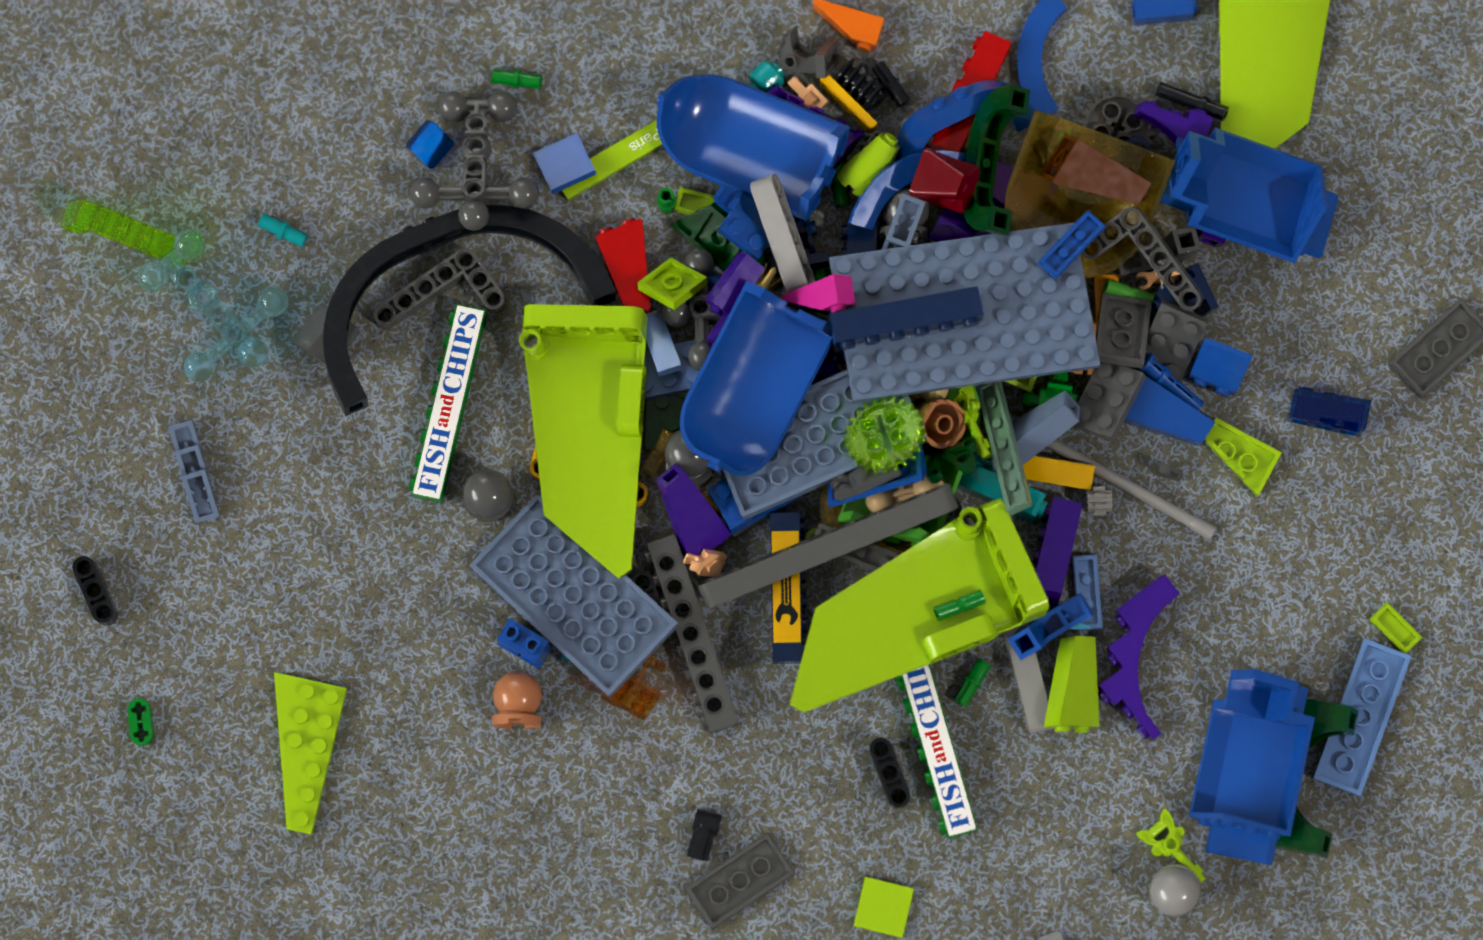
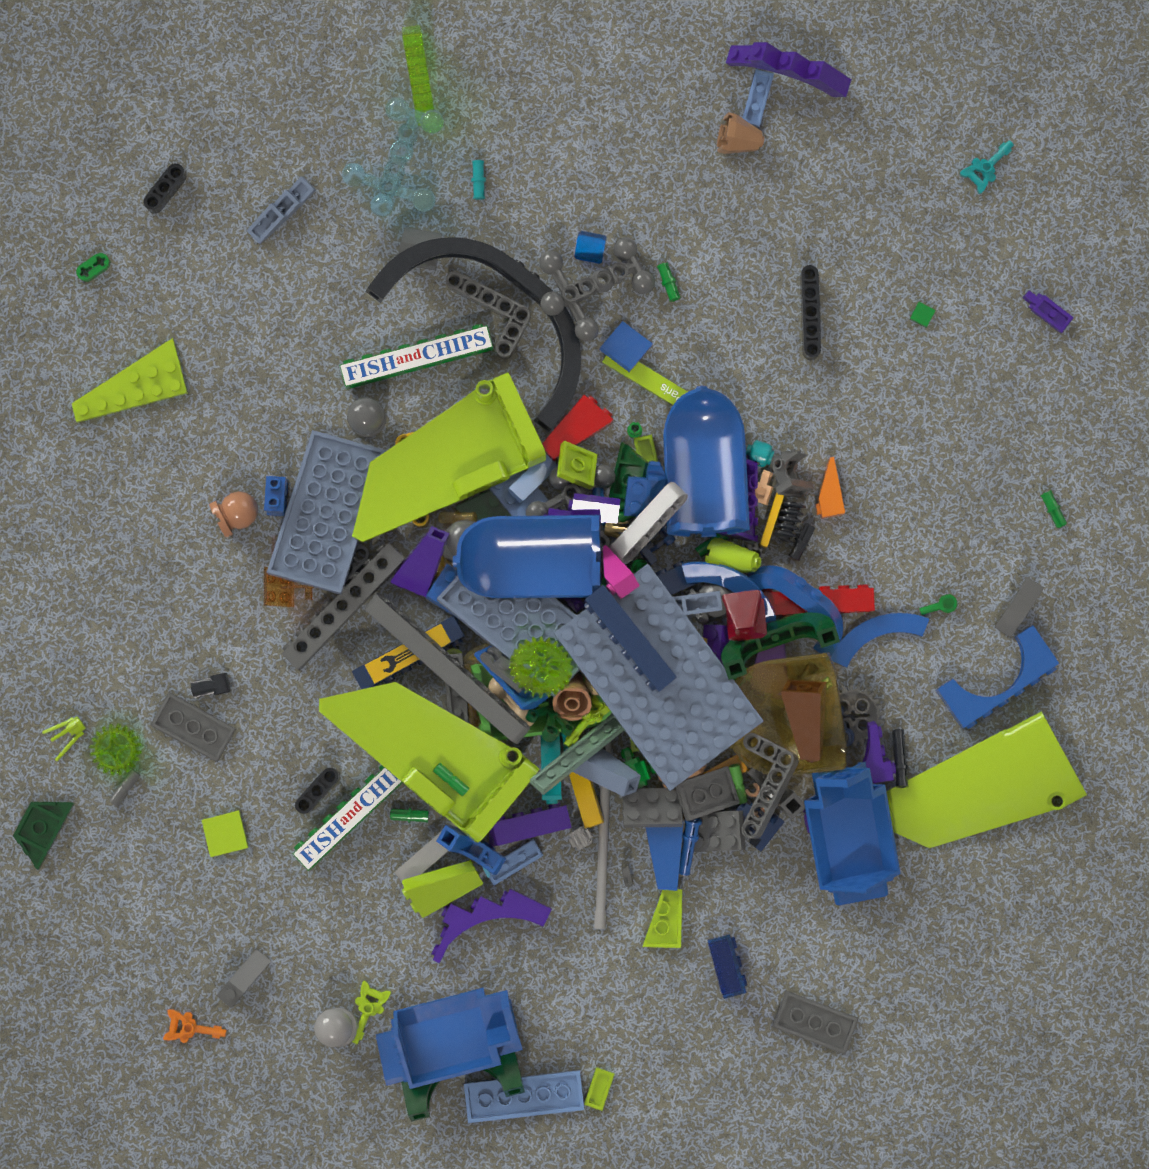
camera: 60 degrees right, 5 degrees up
(708, 563) = (397, 592): light nougat plate -> none
(1071, 245) = (744, 727): blue tile -> none
(1219, 367) = (715, 873): blue slope -> none

